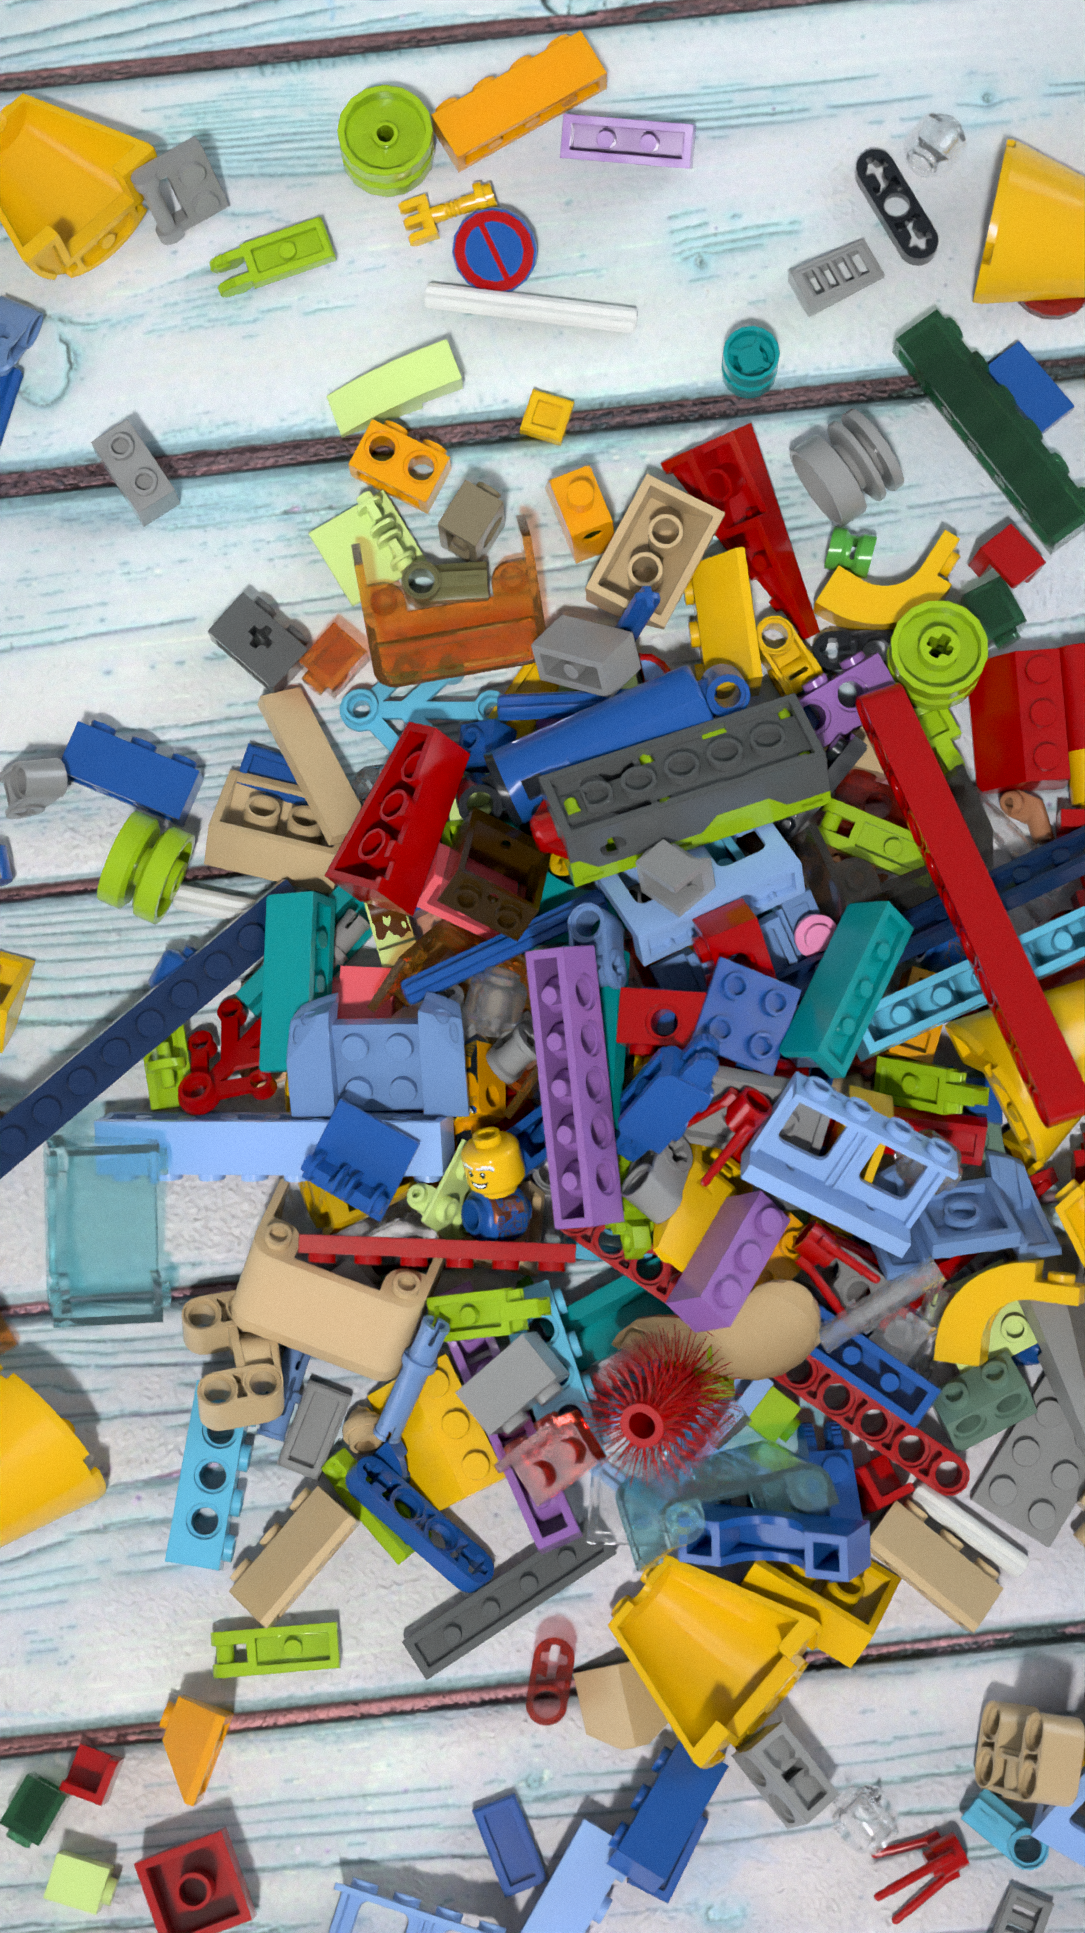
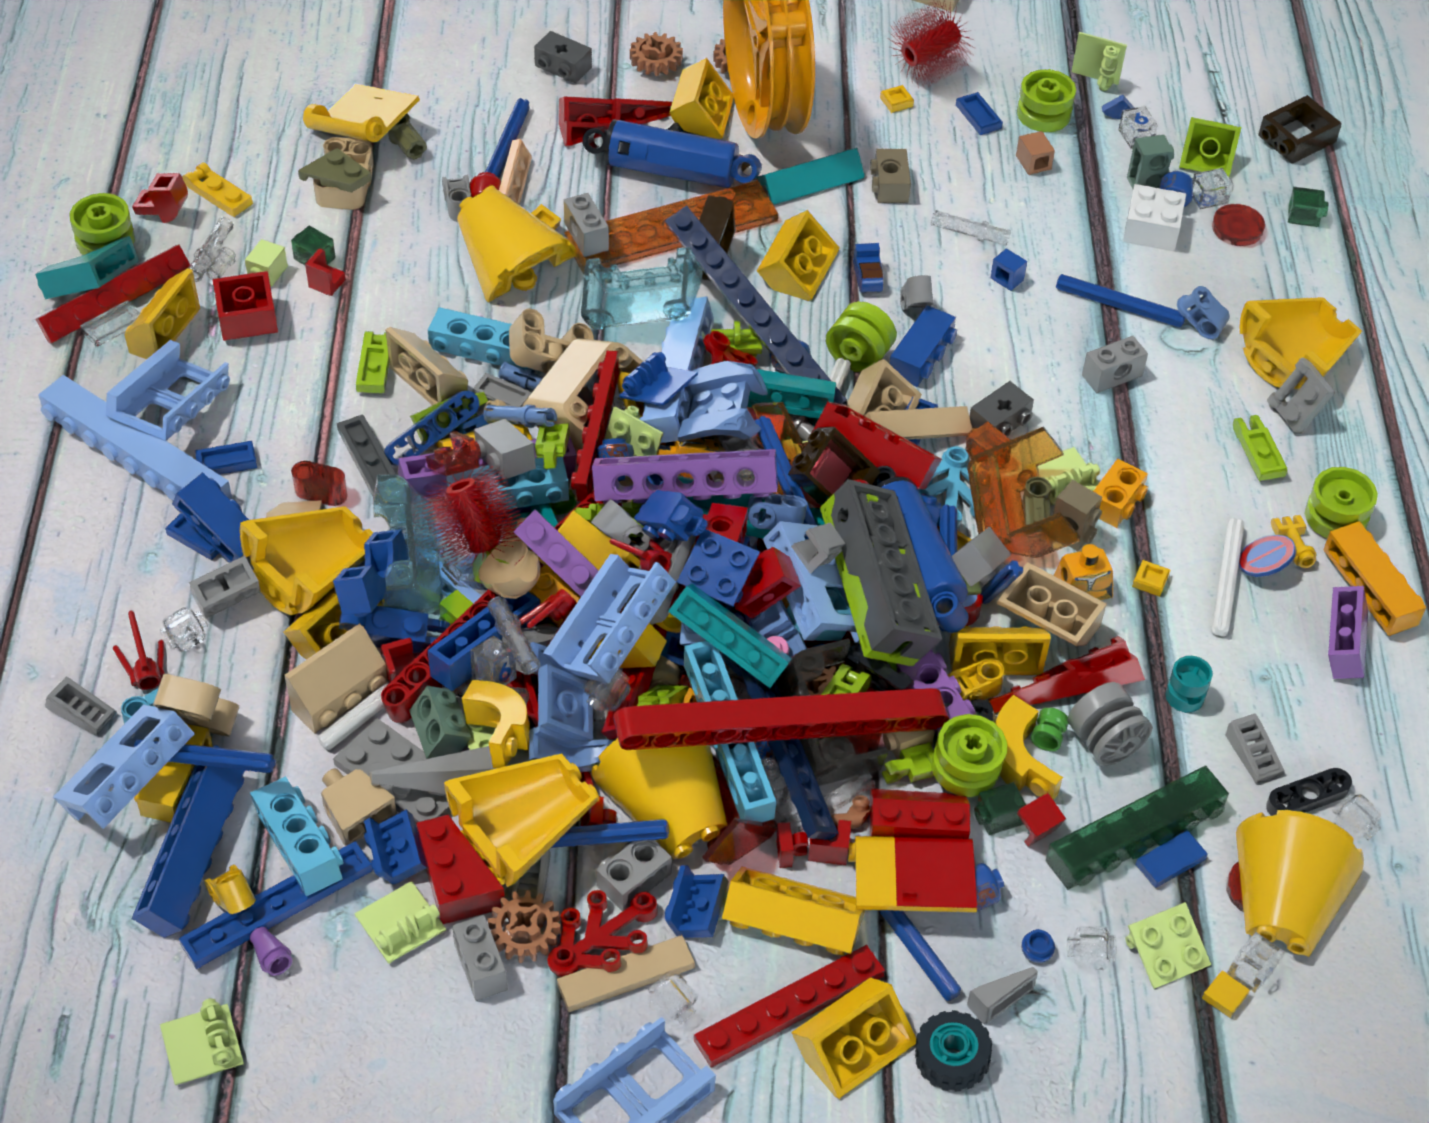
camera: 90 degrees right, 30 degrees down
(193, 1743) = (325, 314): light orange slope -> none
(396, 388) = (1172, 499): yellowish green slope -> none
(493, 1163) = (645, 440): yellow head -> none

